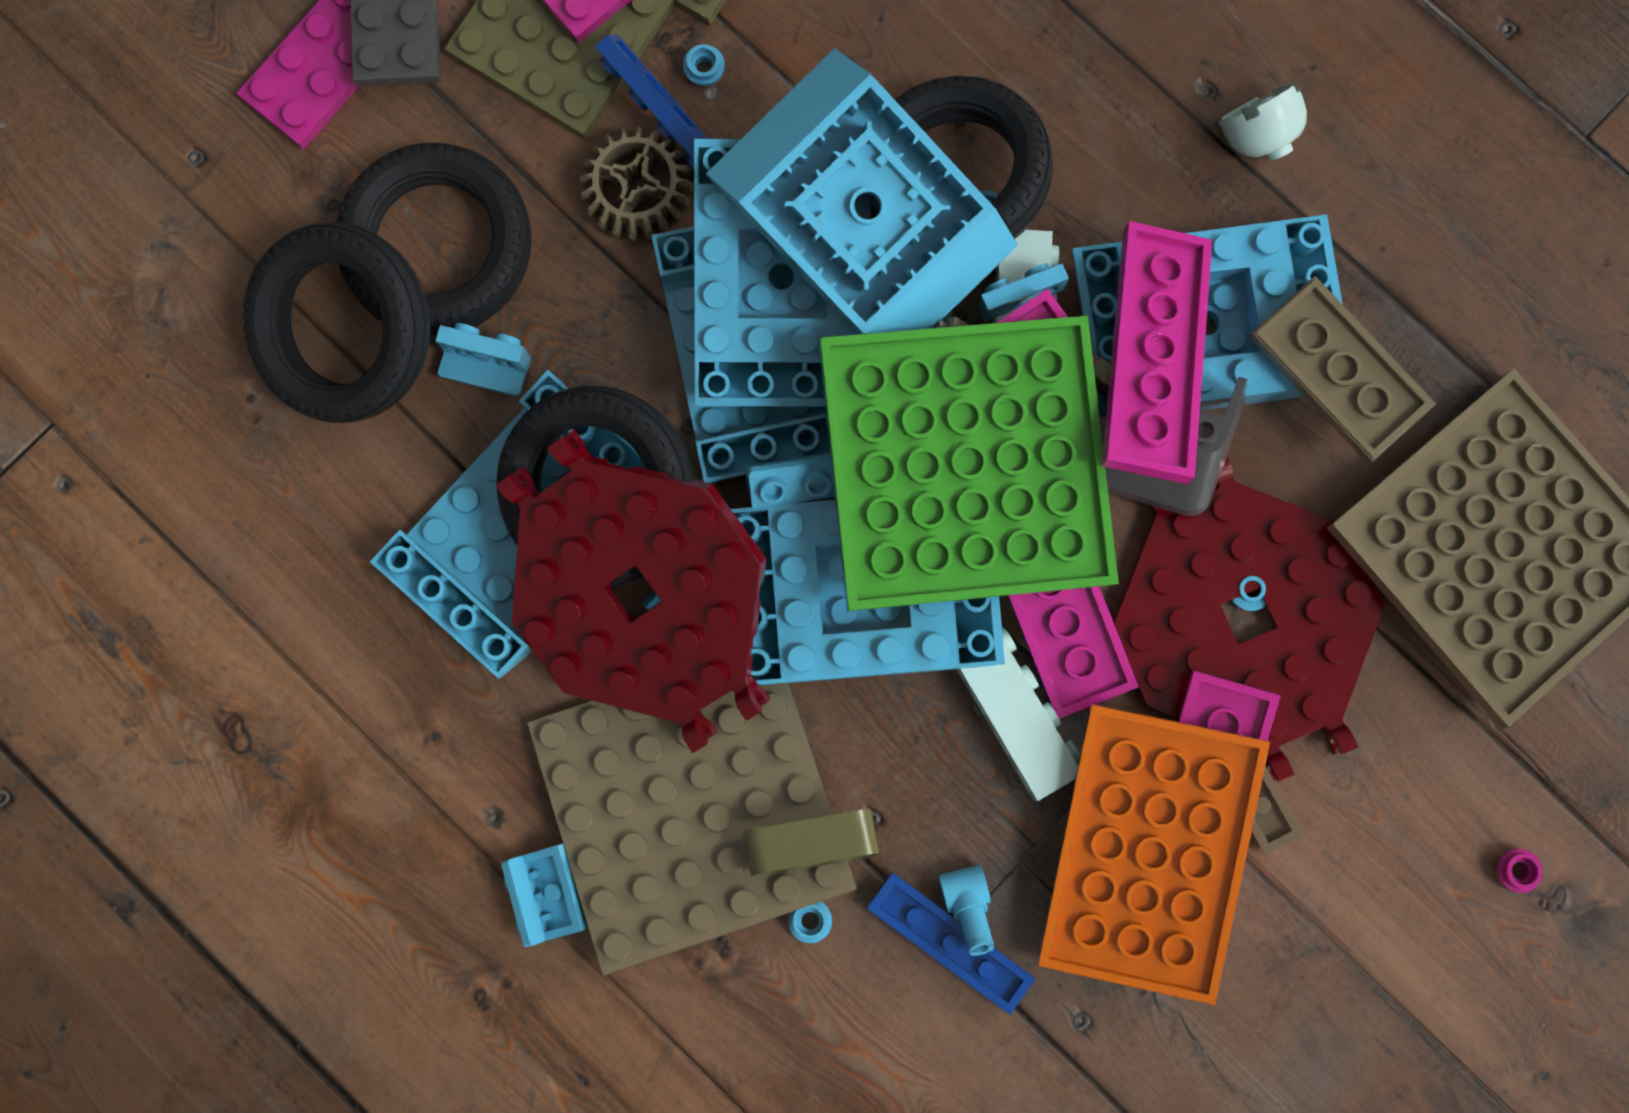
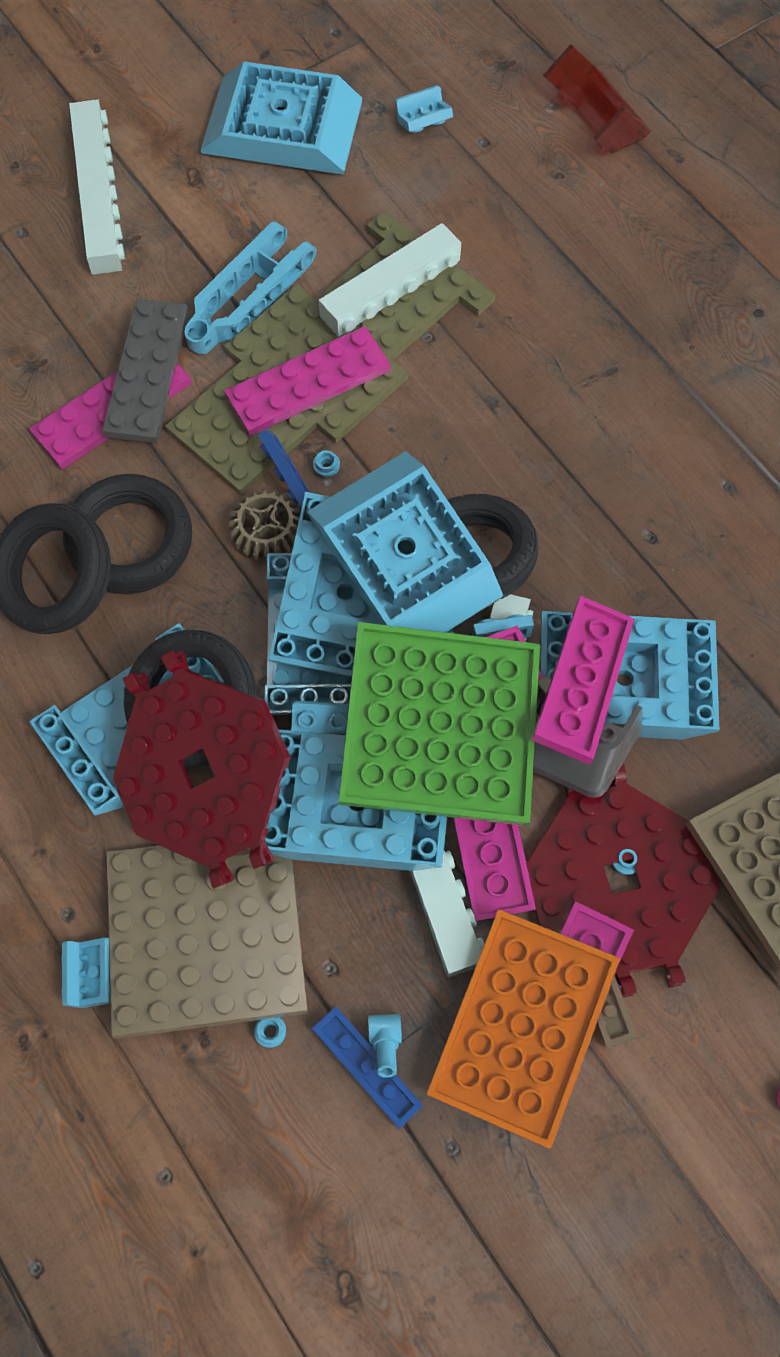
camera: 10 degrees right, 15 degrees down
(481, 360) = (138, 611): medium azure bracket -> none
(811, 842) = (280, 967): olive beam -> none
(1267, 123) = (684, 560): light aqua cylinder -> none
(1342, 370) = (710, 719): dark tan tile -> none

